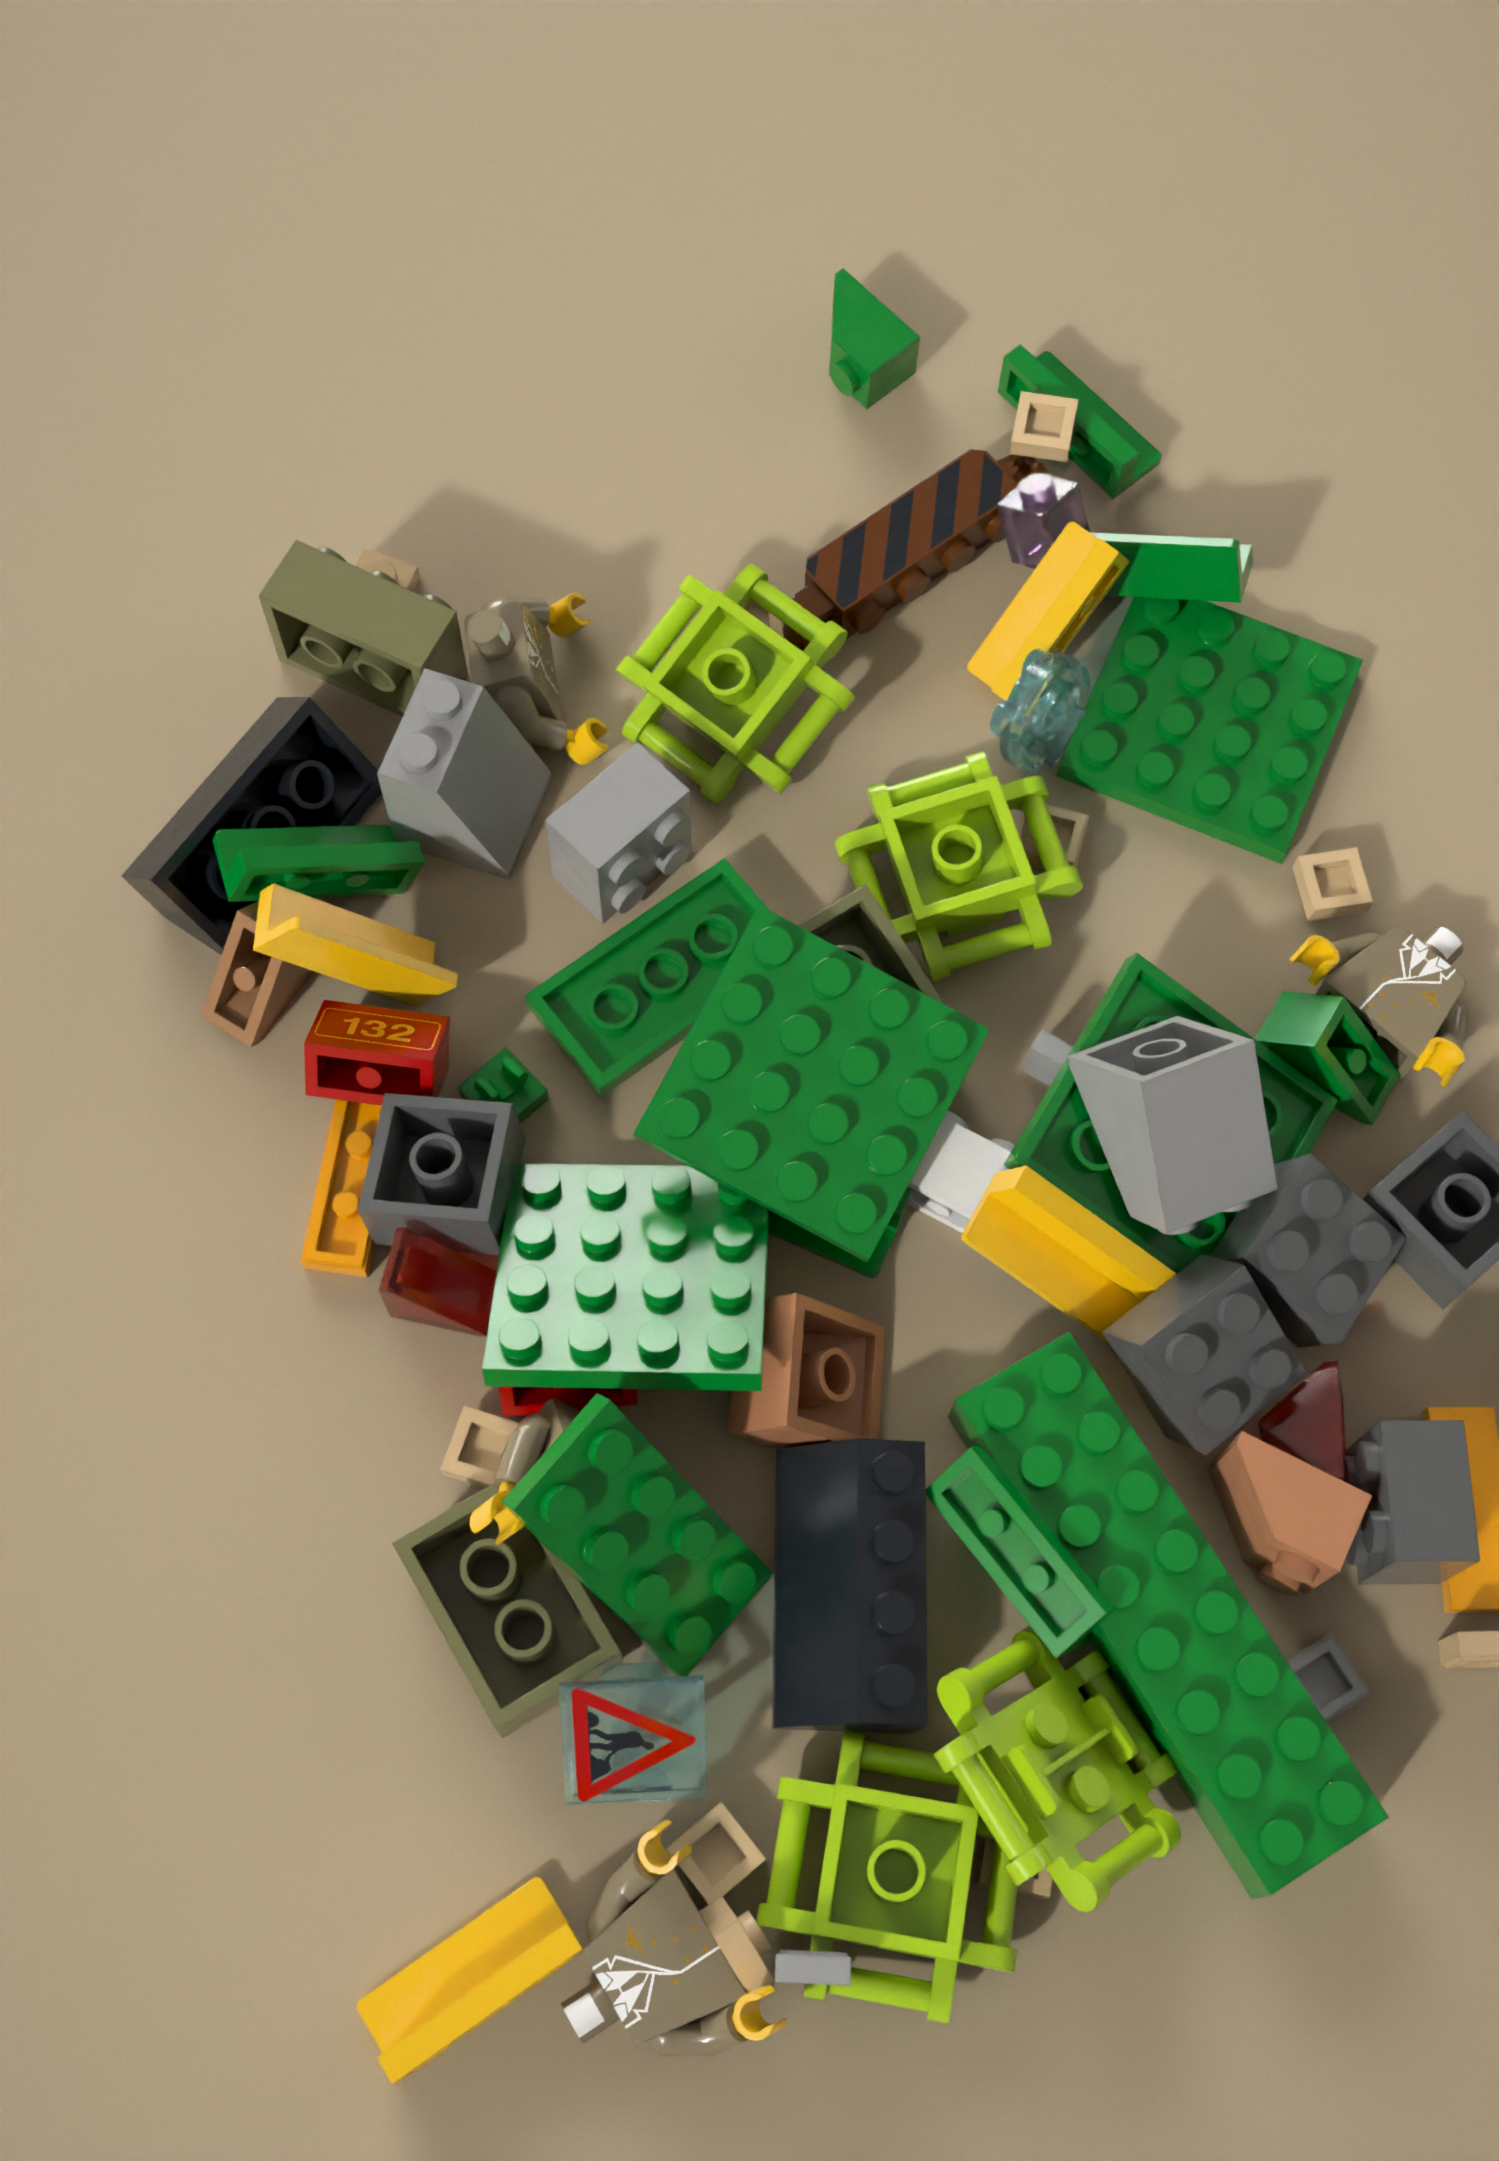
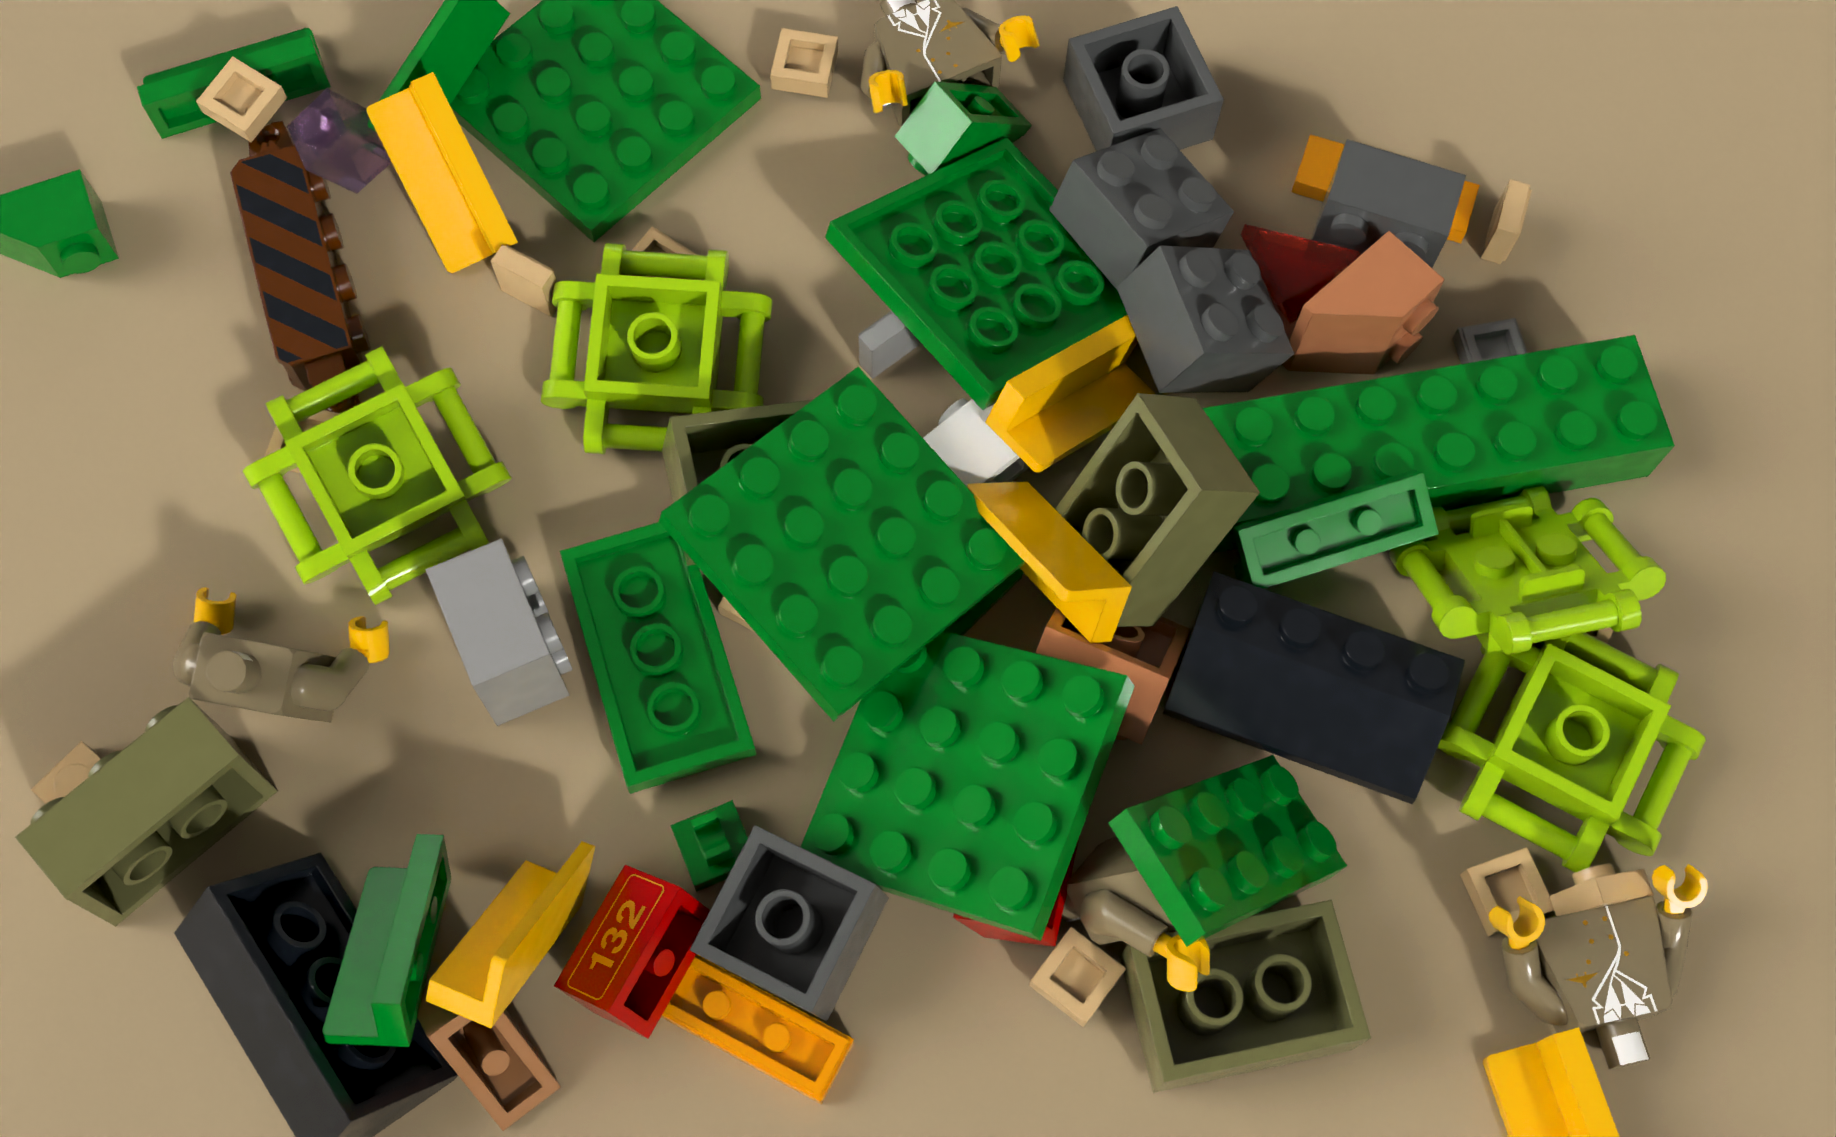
camera: 70 degrees left, 0 degrees up
(436, 1285) = (899, 968): clear red slope -> none
(462, 777) = (367, 765): light grey slope -> none
(633, 1736) = (1399, 917): clear light blue piece -> none
(813, 1968) = (1650, 827): light grey tile -> none
(875, 1272) = (1055, 557): none -> yellow panel
(952, 1348) = (1158, 499): none -> olive brick
(980, 735) = (525, 279): none -> tan tile
(1041, 710) = (551, 230): clear light blue plate -> none
(1179, 1121) = (1001, 247): light grey slope -> none

